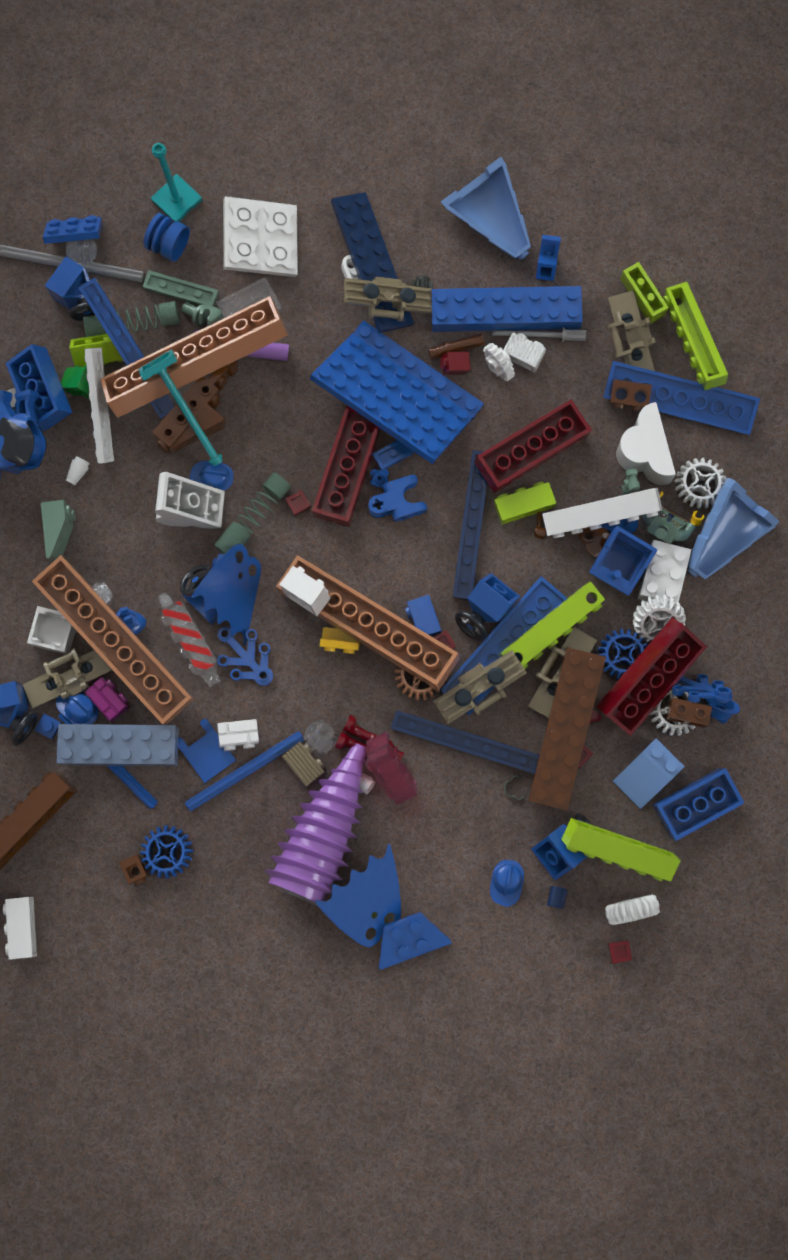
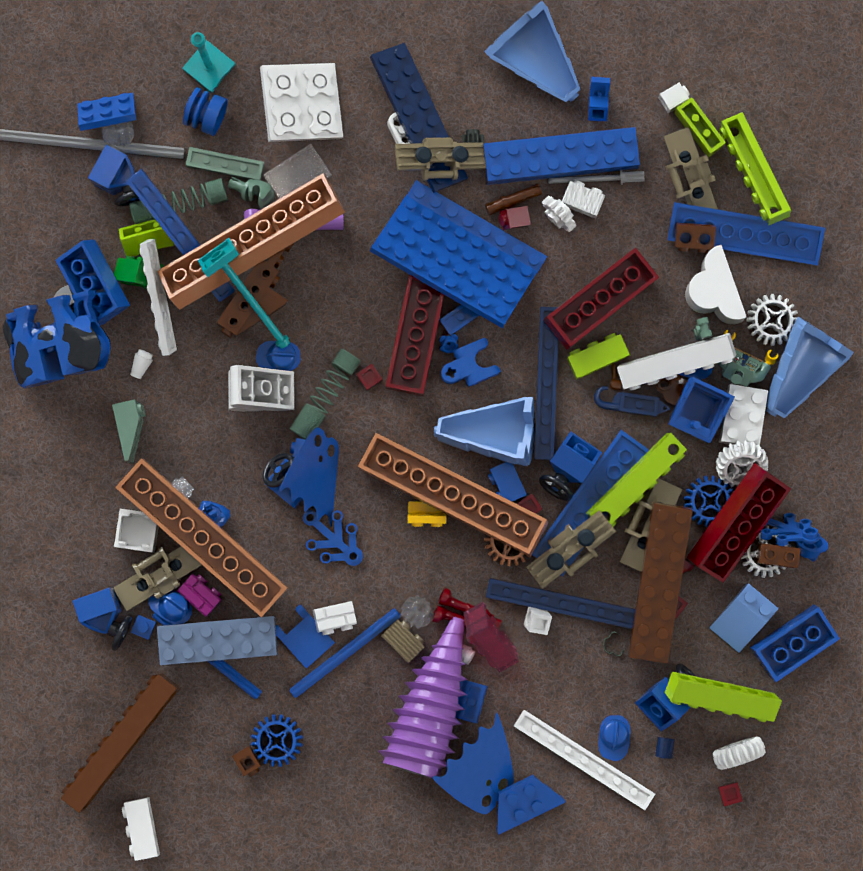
camera: 10 degrees left, 5 degrees up
(190, 638) = (276, 525): clear hinge -> none
(305, 590) = (389, 471): white container -> none
(365, 831) = (472, 701): none -> blue plate
(414, 564) = (493, 431): none -> medium blue cone
(440, 756) = (537, 620): none -> white brick
(474, 902) = (584, 759): none -> white plate
(554, 552) = (631, 403): none -> dark blue plate
(619, 262) = (674, 97): none -> white brick

